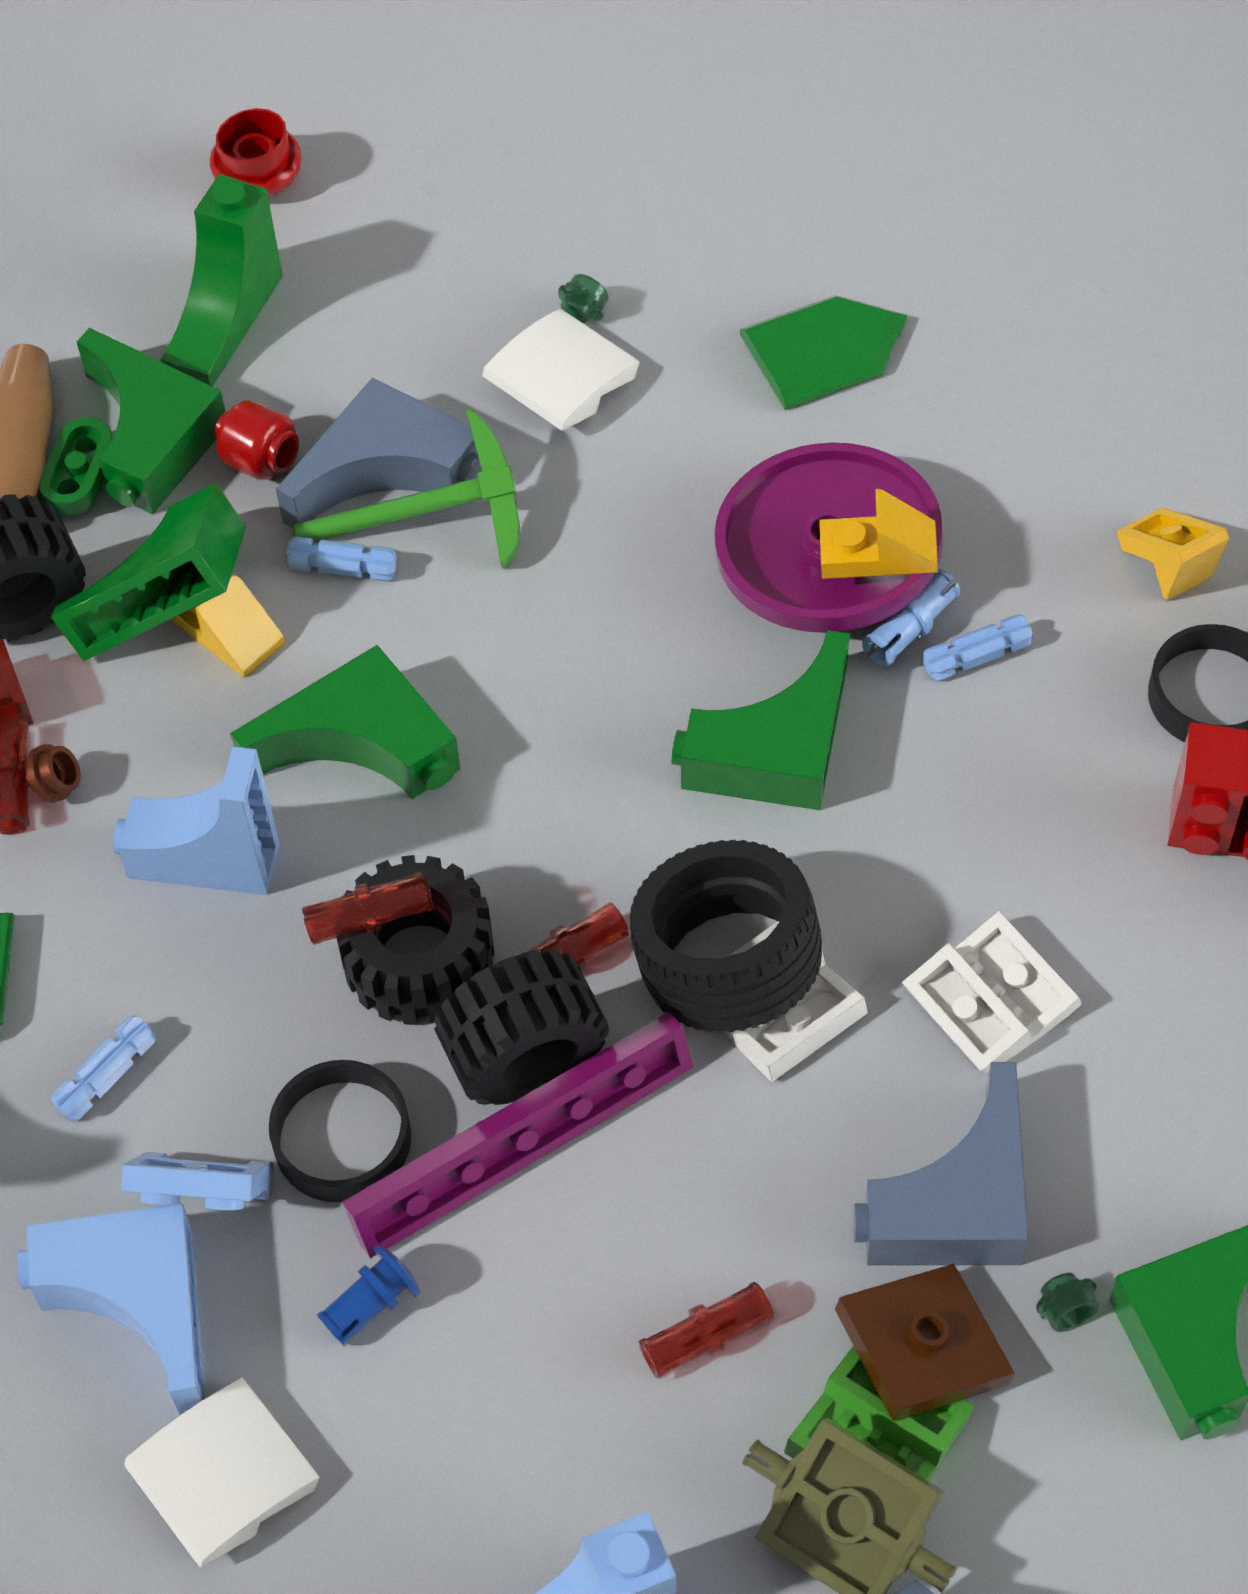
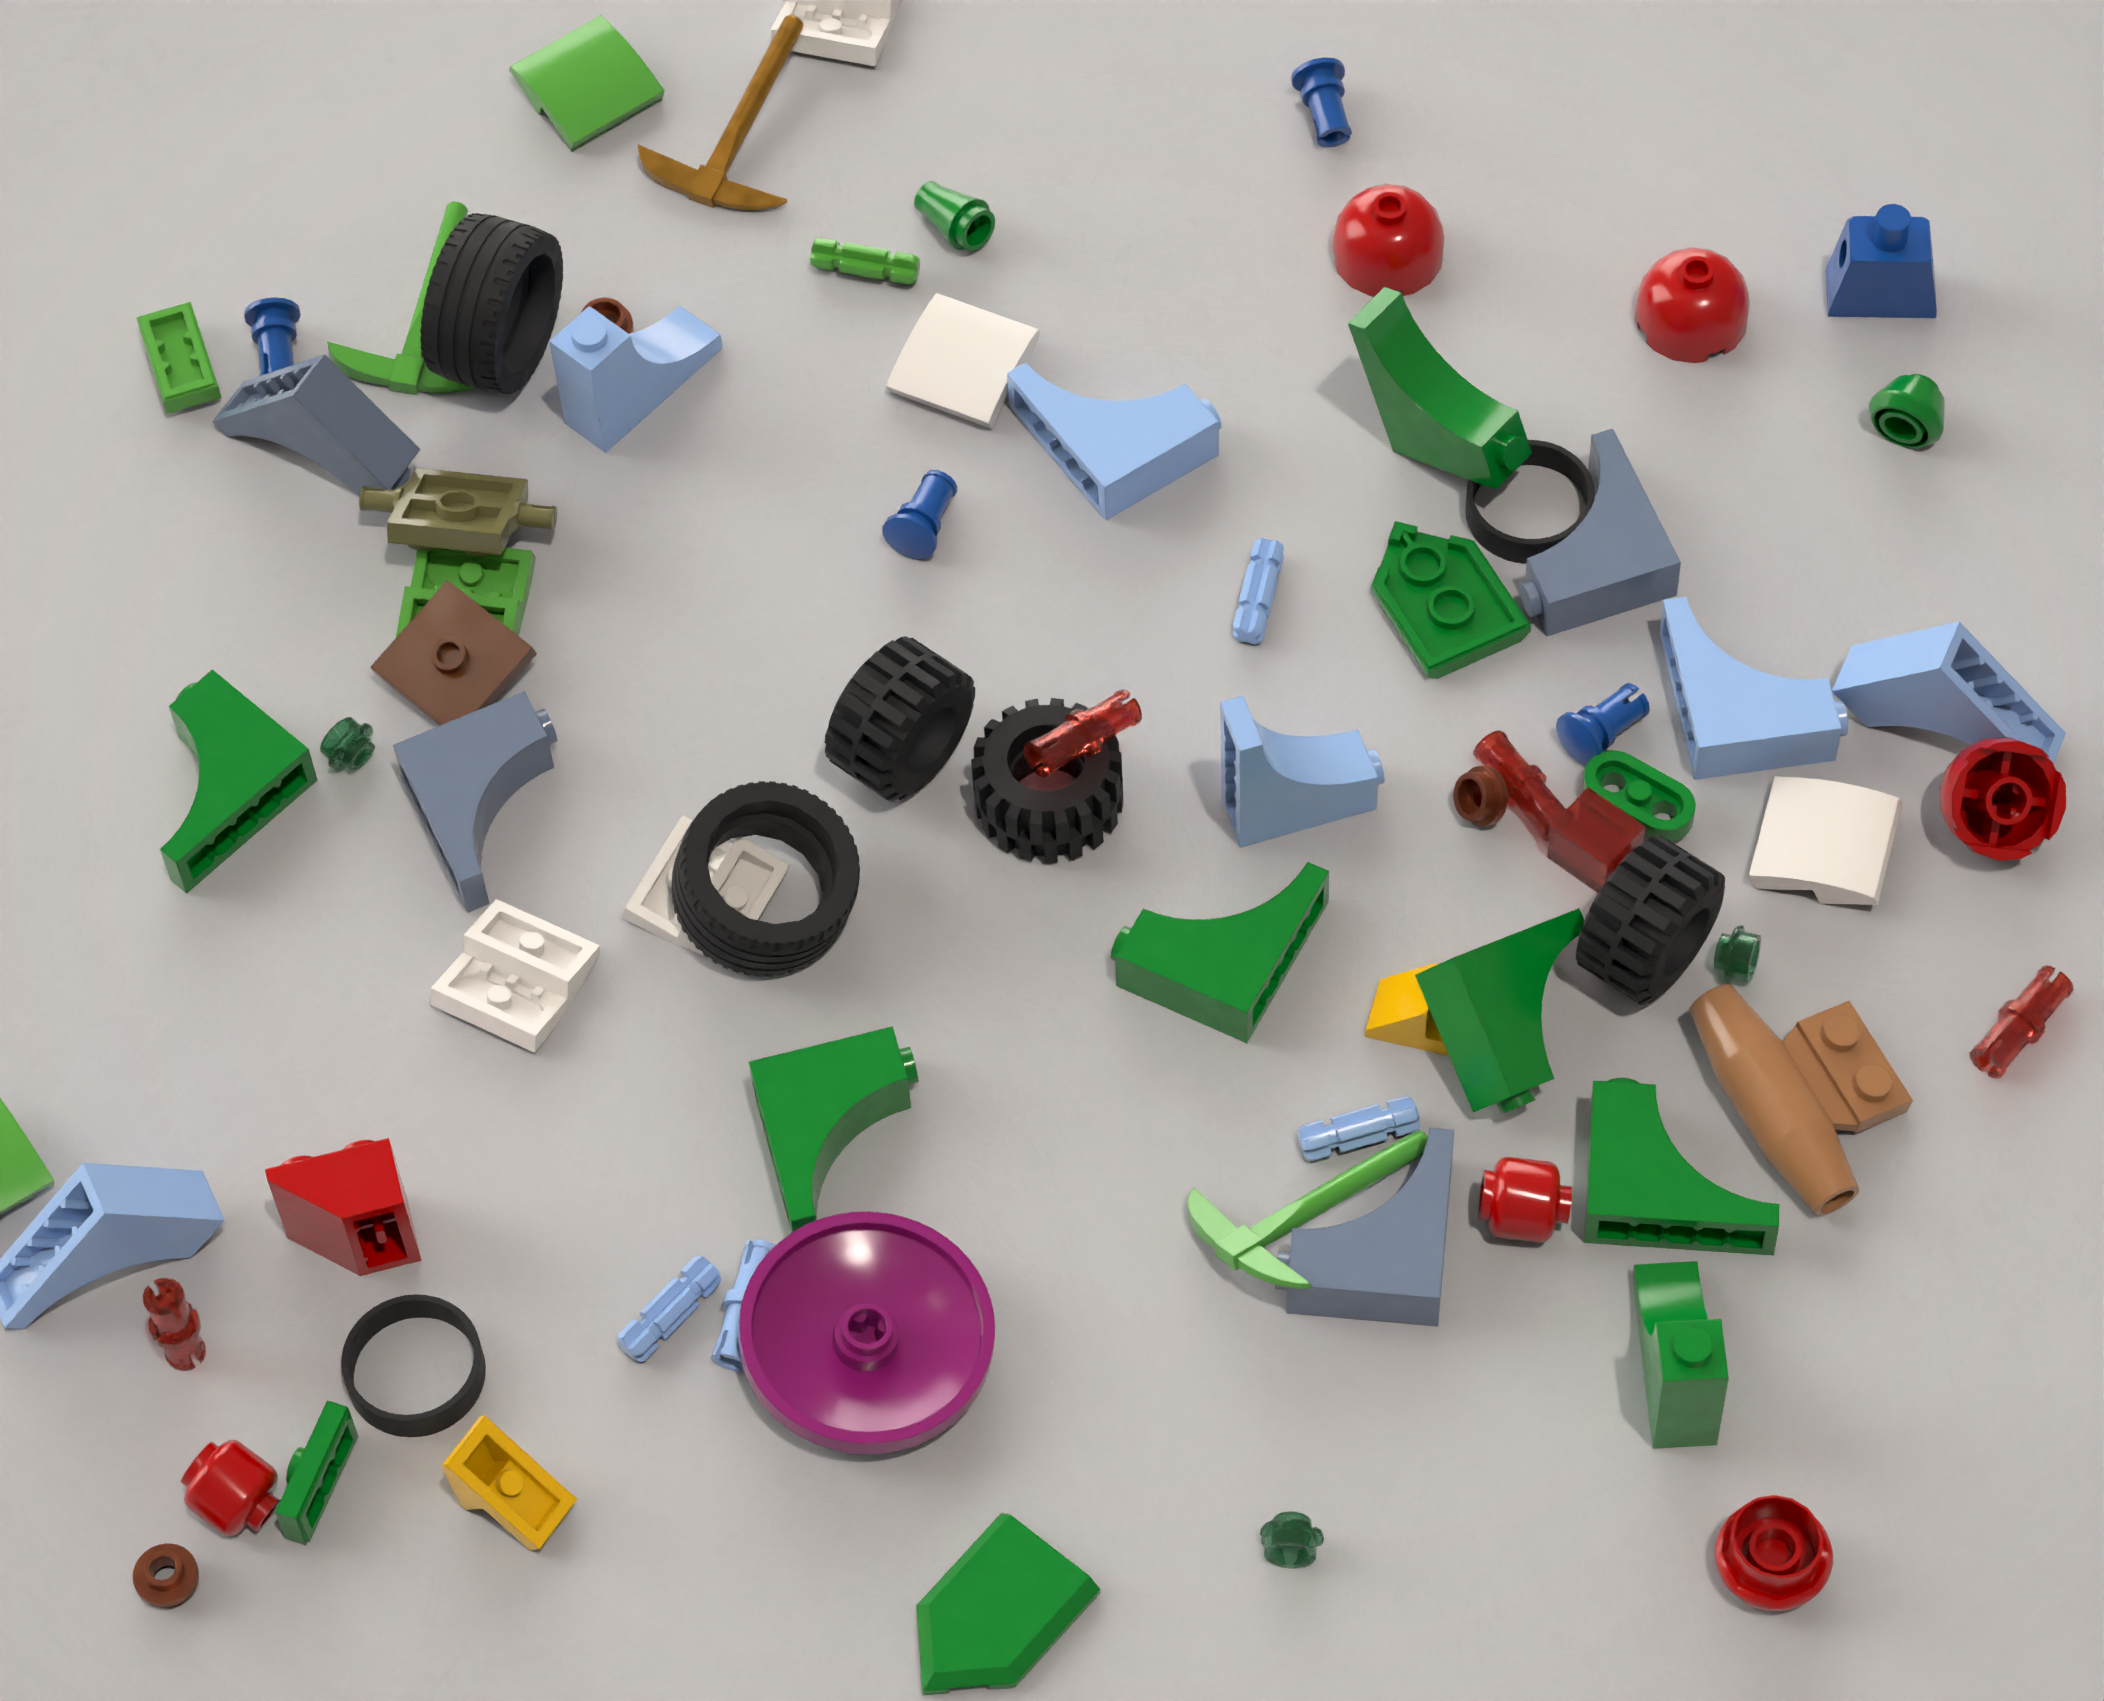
camera: 155 degrees right, 0 degrees up
(73, 471) = (1694, 1108): green plate -> none
(221, 1184) = (1103, 501): light blue plate -> none
(325, 1074) = (1016, 577): black tyre -> none
(518, 1134) = (913, 616): magenta plate -> none
(560, 369) = (1263, 1440): white slope -> none
(588, 935) = (905, 857): clear red pin -> none
(706, 1330) = (637, 607): clear red pin -> none
(890, 544) = (798, 1306): yellow slope -> none

